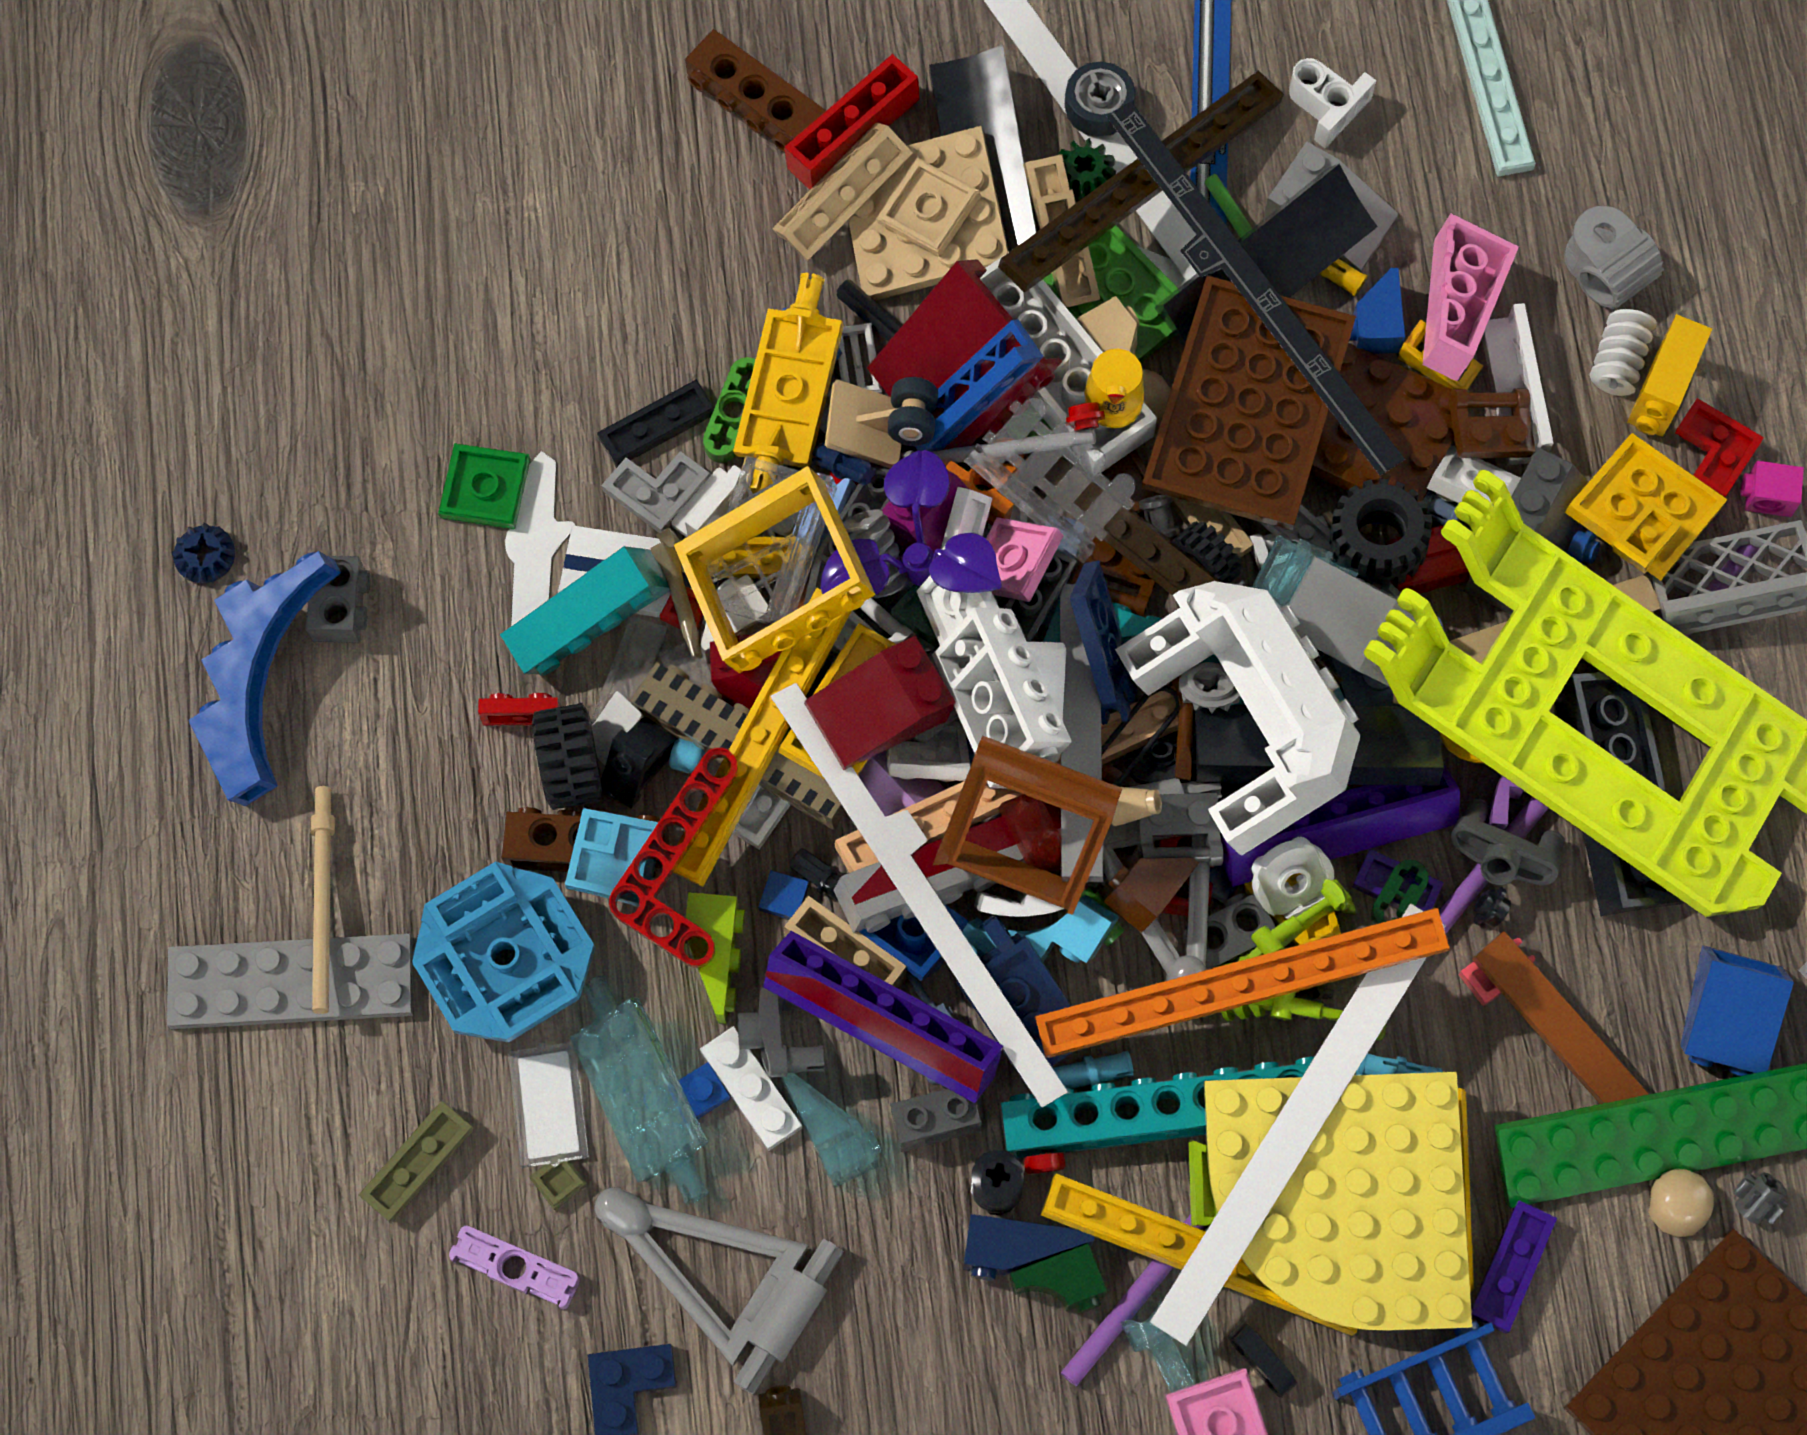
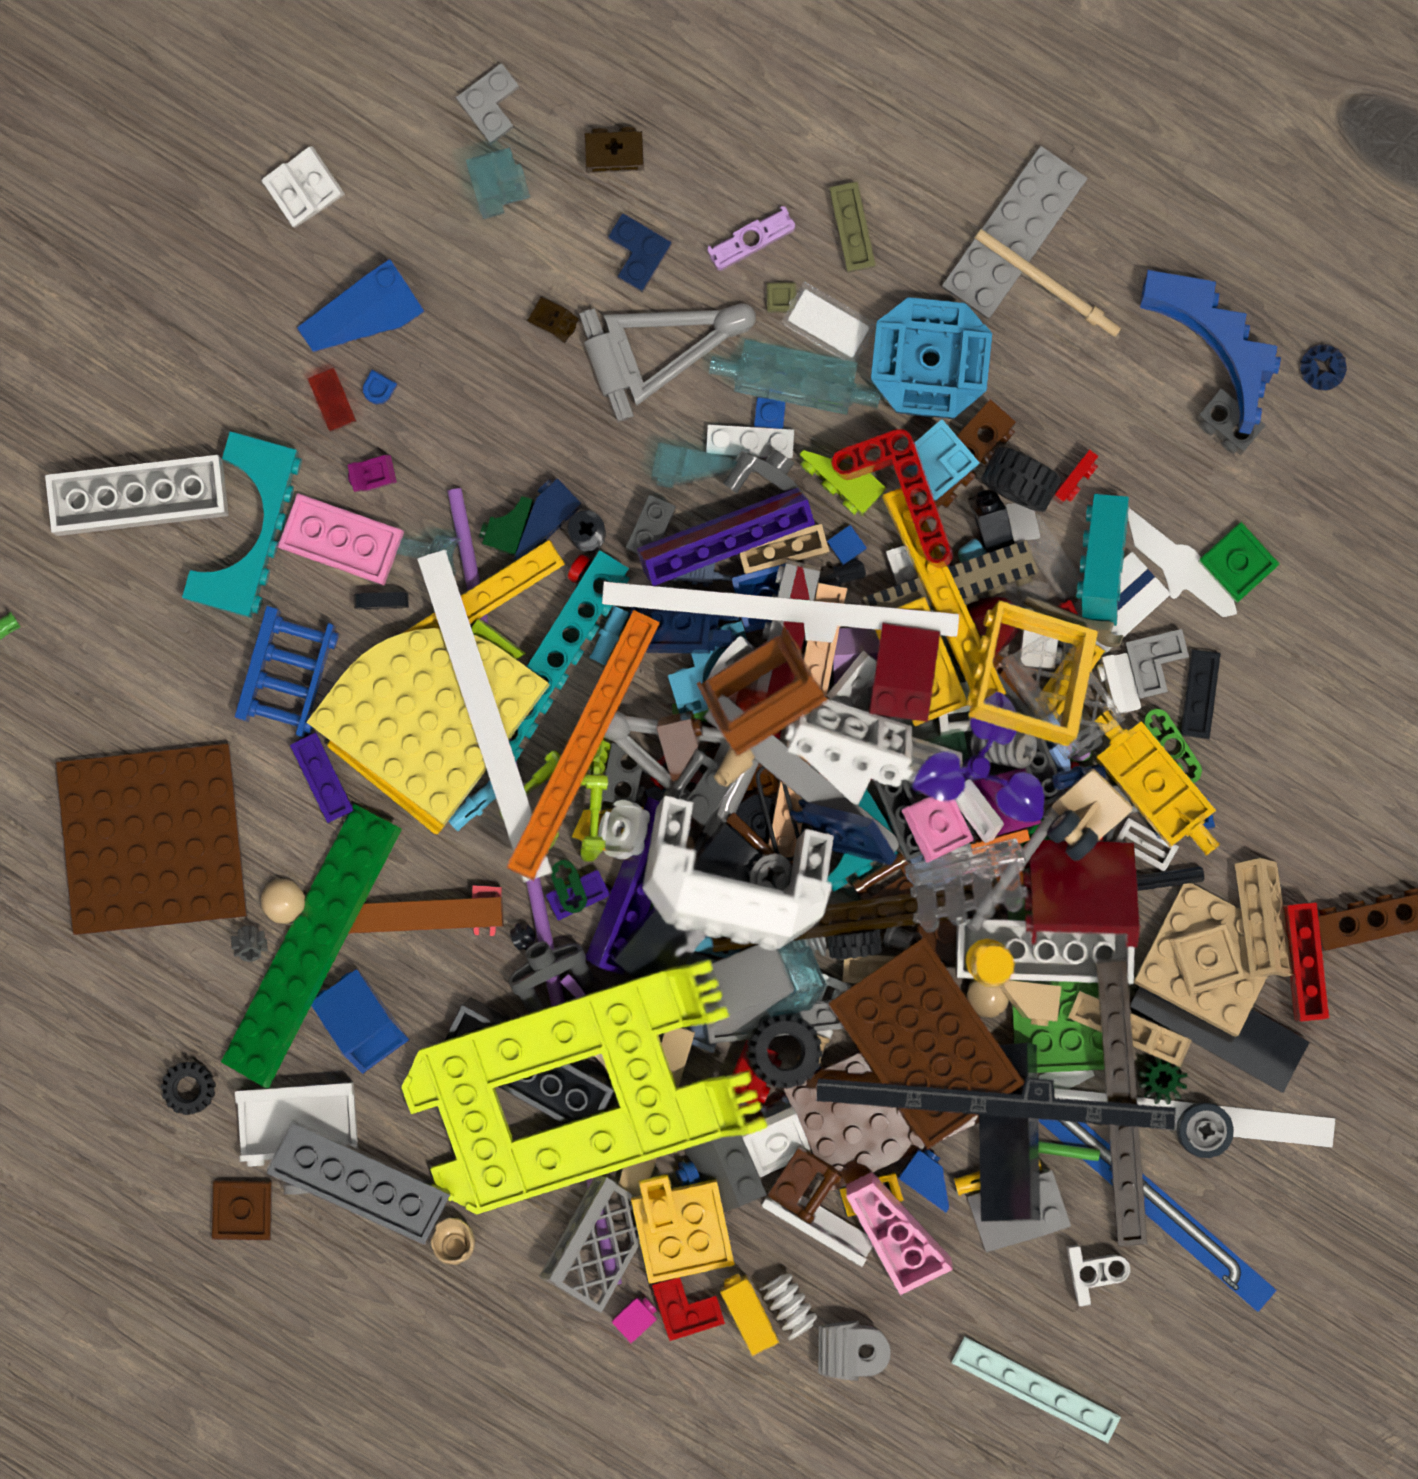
camera: 130 degrees right, 15 degrees up
(983, 390) = (1047, 888): blue fence -> none
(1085, 415) = (987, 931): red plate -> none

